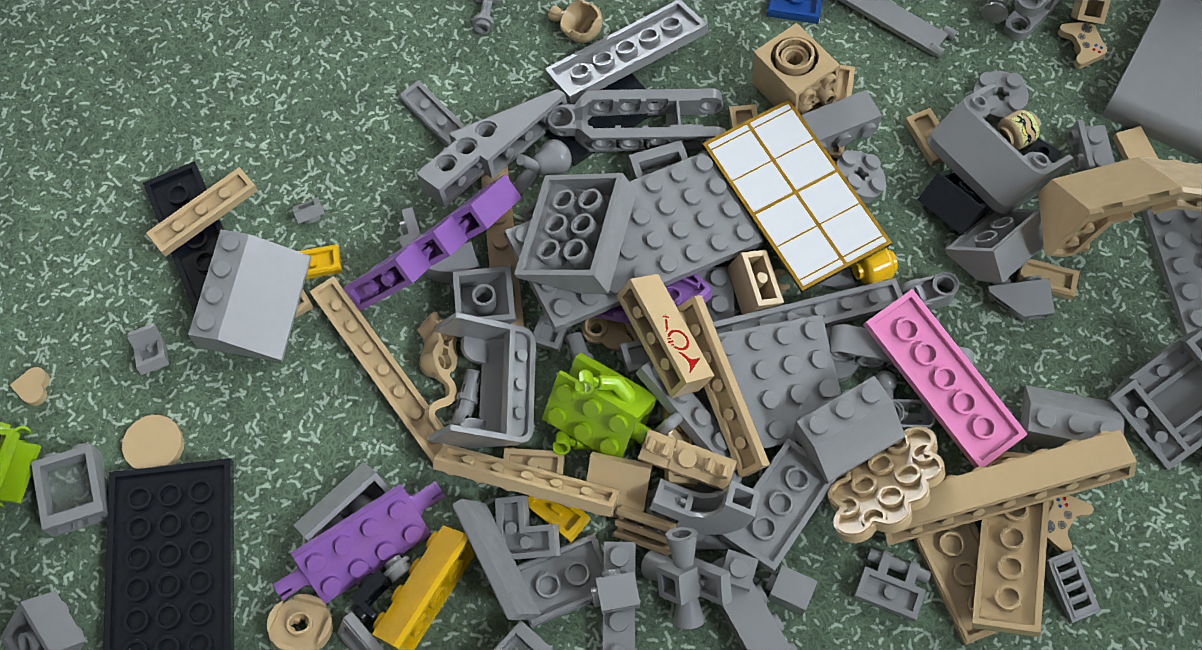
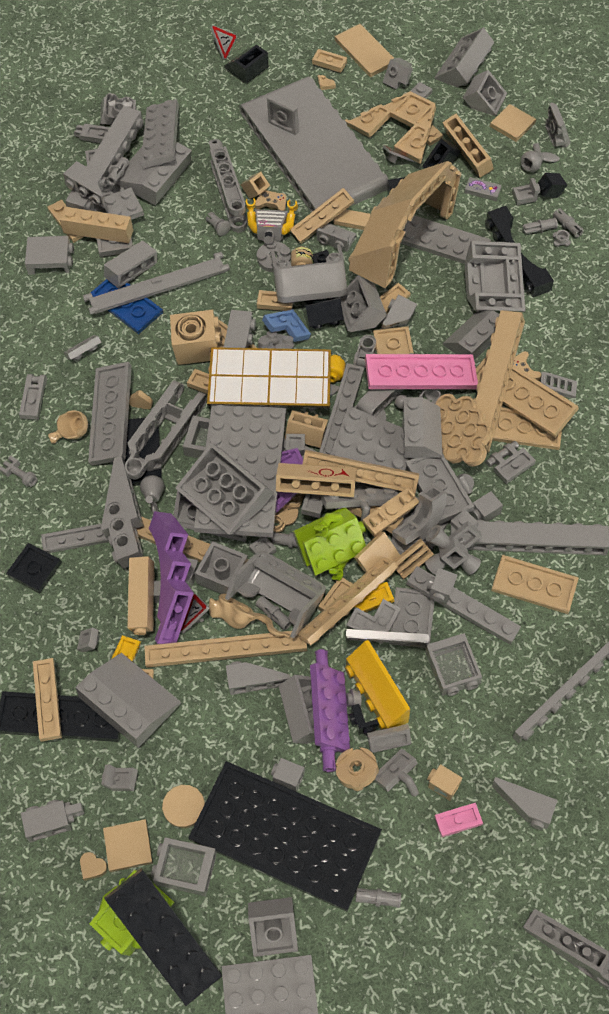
camera: 60 degrees left, 5 degrees down
(61, 305) = (49, 819): none -> light grey hinge
(74, 410) = (127, 845): none -> tan tile
(249, 544) = (288, 774): none -> light grey brick
(357, 420) = (250, 677): none -> light grey slope
(370, 98) = (33, 568): none -> black plate
(386, 229) = (141, 595): none -> tan brick
(412, 306) = (195, 611): none -> piece
(669, 73) = (140, 400): none -> tan tile
(722, 282) = (295, 441): none -> light grey plate
(813, 539) = (467, 482): none -> light grey plate
(907, 168) = (287, 321): none -> medium blue plate
(975, 320) = (393, 341): none -> tan tile
(1044, 59) = (270, 224): none -> torso
(1108, 113) = (322, 215): none -> tan plate

